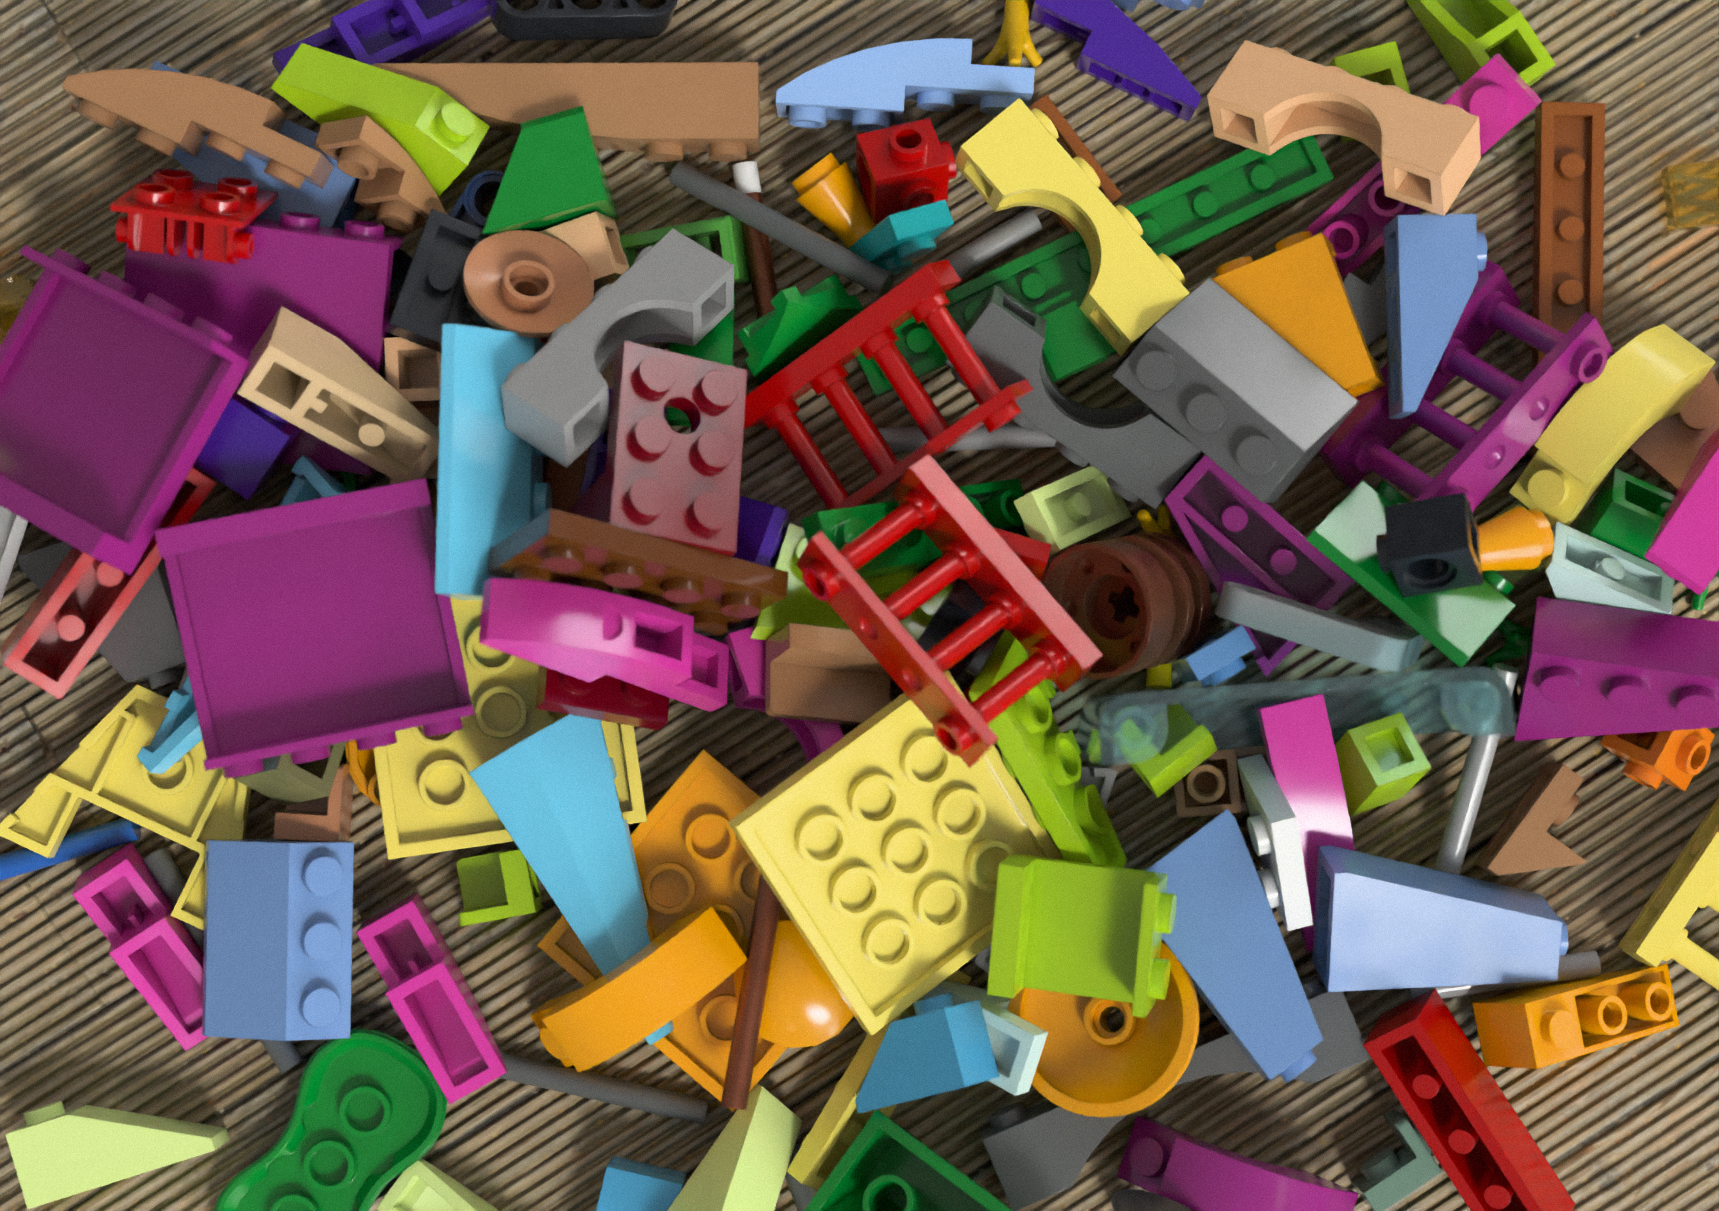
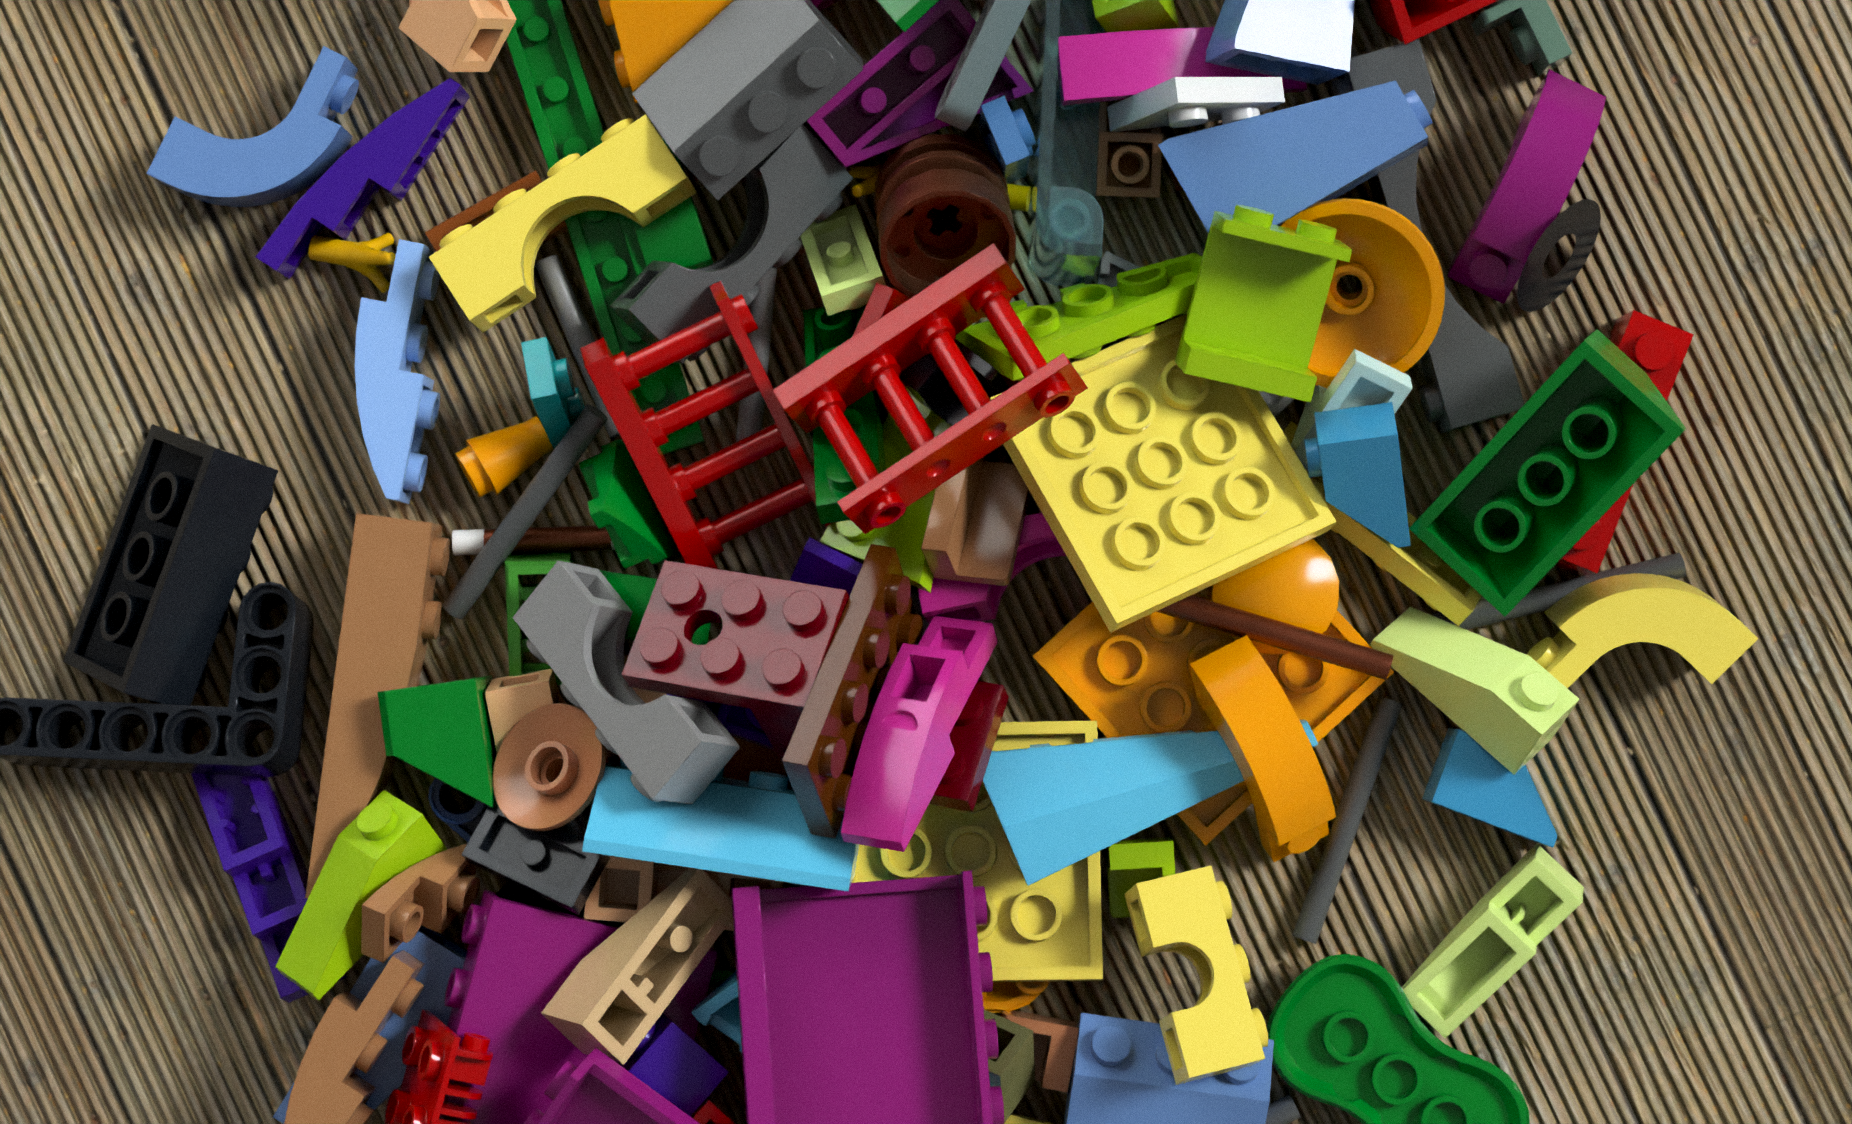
camera: 75 degrees left, 0 degrees up
(351, 982) = (1190, 917): none -> light yellow arch
(432, 997) = (1275, 943): dark pink slope -> none
(903, 167) = (482, 383): red brick -> none
(1182, 752) = (1094, 176): lime panel -> none

